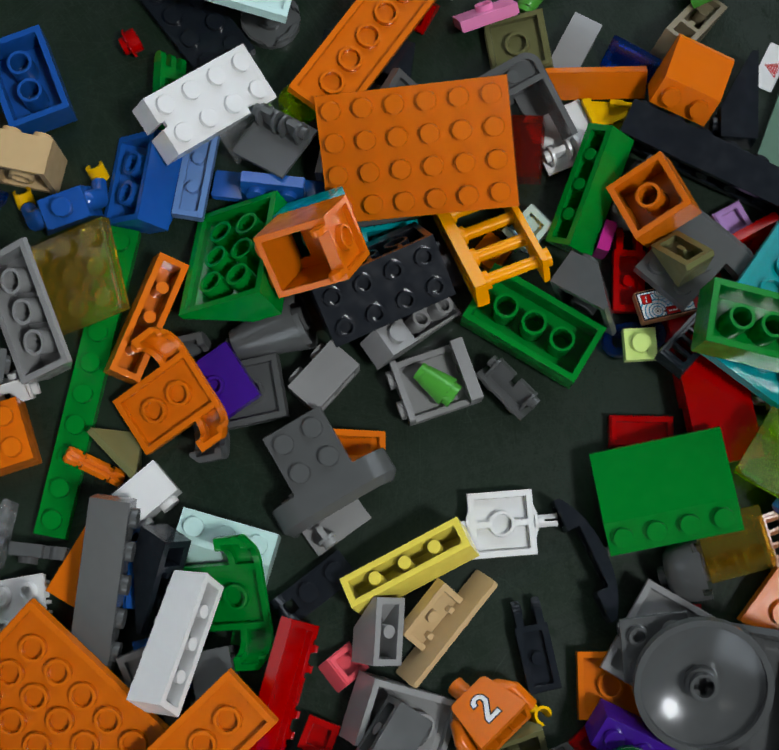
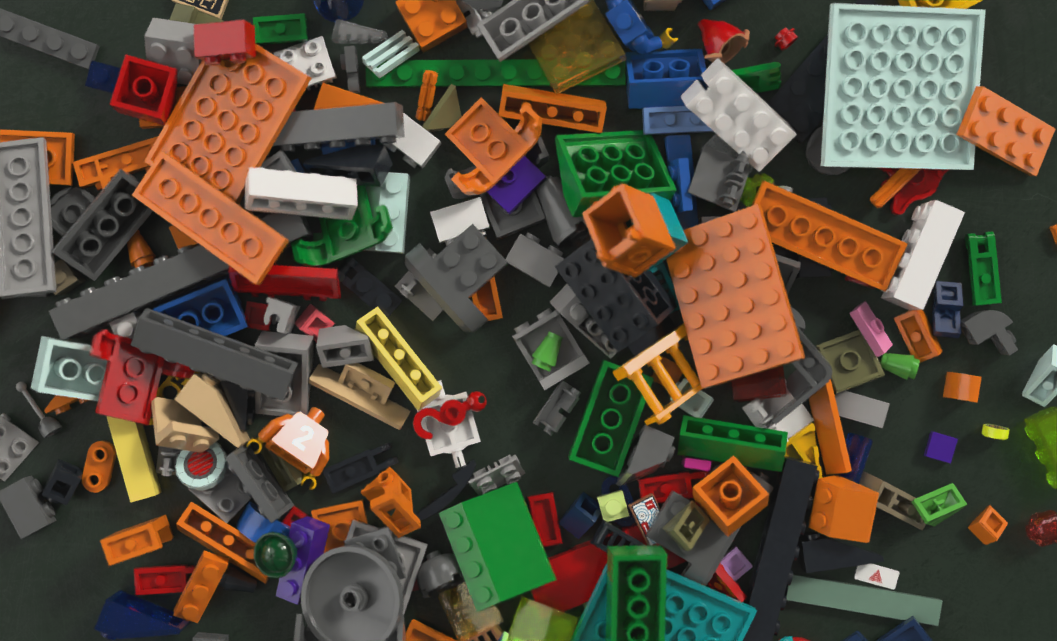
camera: 80 degrees right, 10 degrees up
(29, 504) = (388, 51): none -> light aqua tile
(112, 110) = (722, 39): none -> hat
(253, 462) = (455, 219): none -> white brick
(317, 703) = (282, 312): none -> light grey hinge
(489, 515) = (451, 413): none -> red piece
(576, 461) = (507, 472): none -> light grey hinge
(576, 611) = (391, 492): none -> orange tile
(643, 387) = (580, 515): none -> dark blue brick

